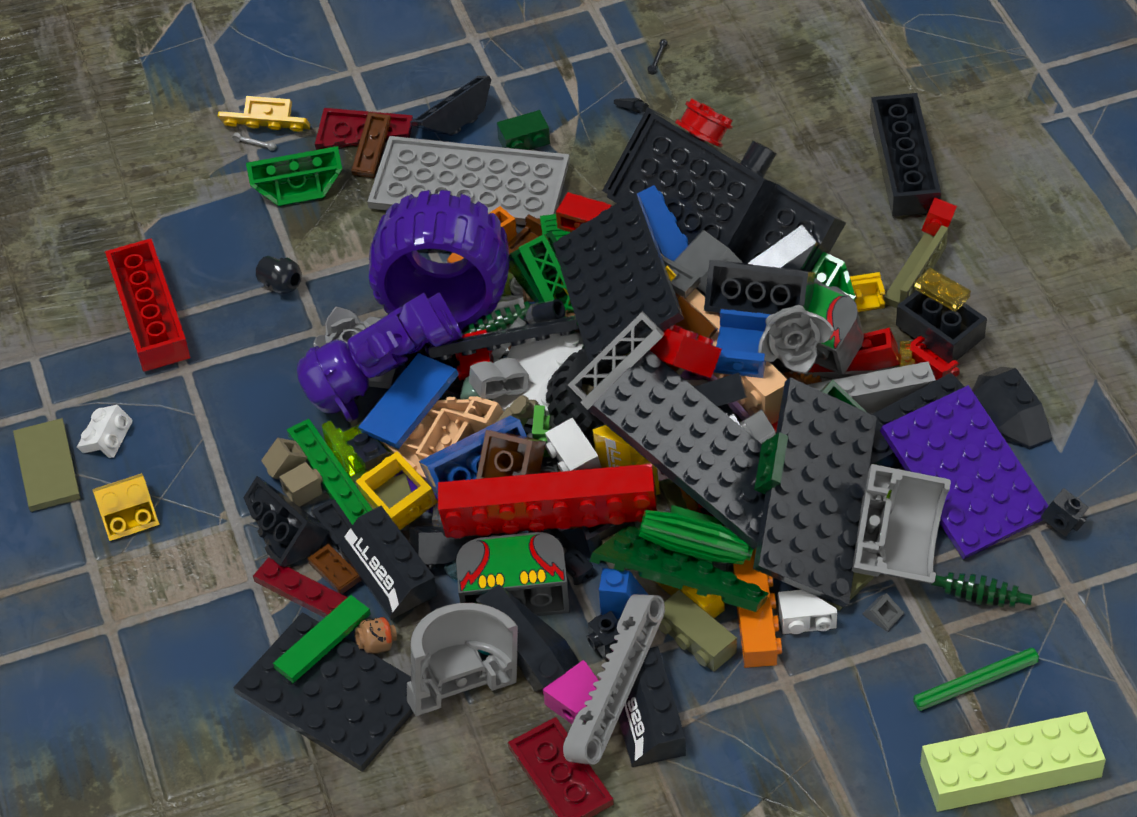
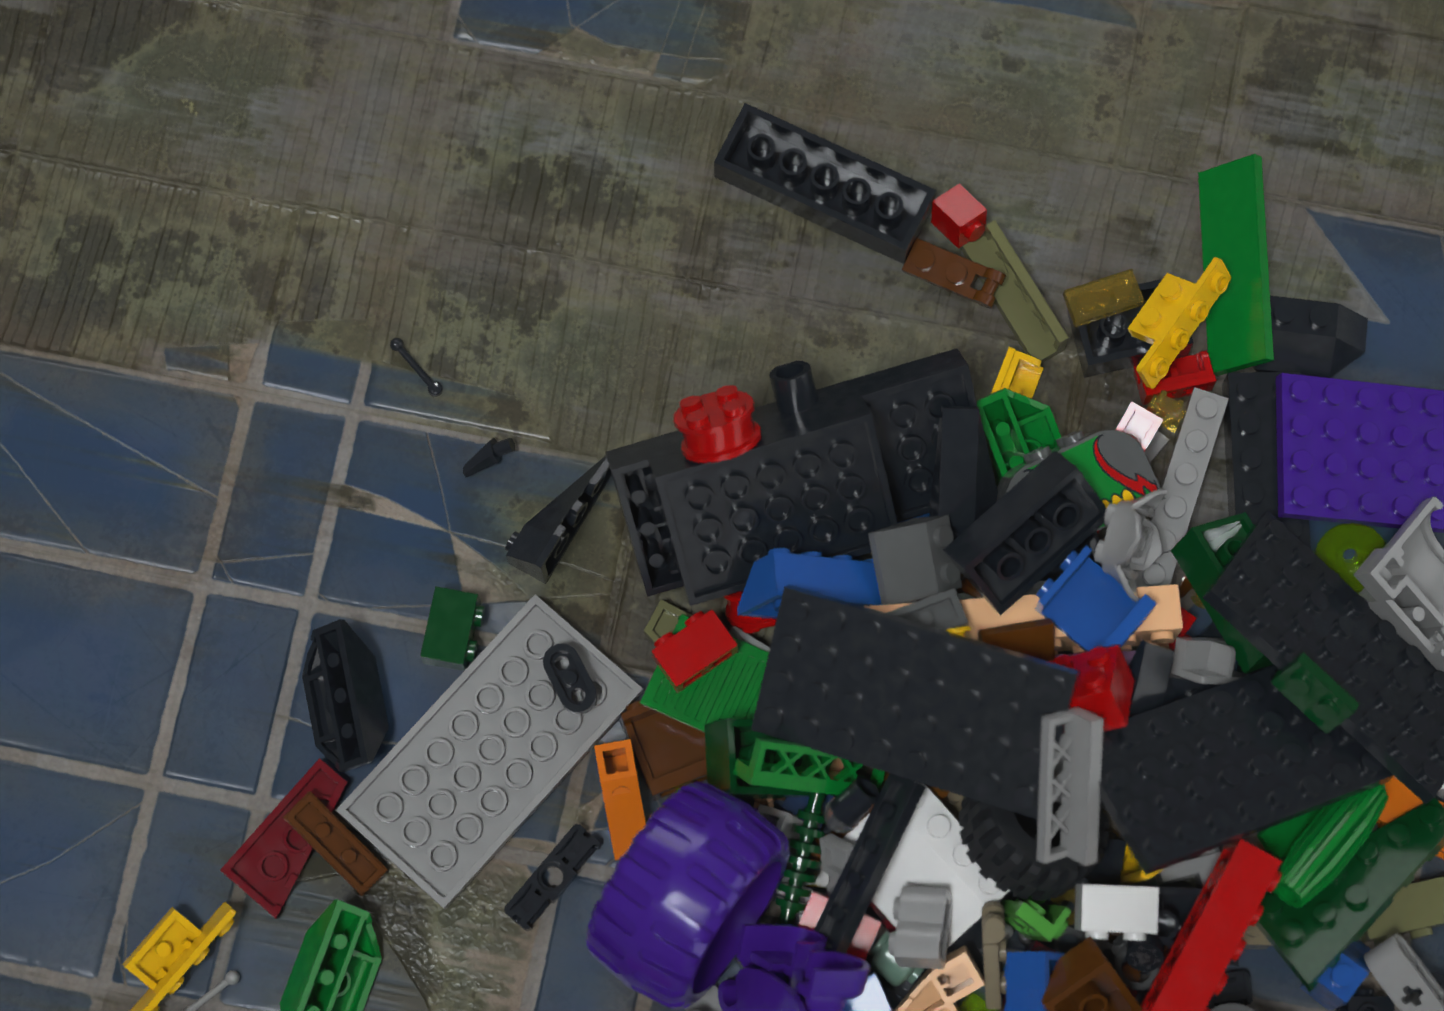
camera: 60 degrees left, 25 degrees up
(531, 184) = (571, 679): none -> black plate
(602, 144) = (551, 531): none -> black wedge
(904, 234) = (952, 272): none -> reddish brown plate
(958, 324) = (1173, 316): none -> yellow bracket
(1025, 349) = (1236, 233): none -> green tile

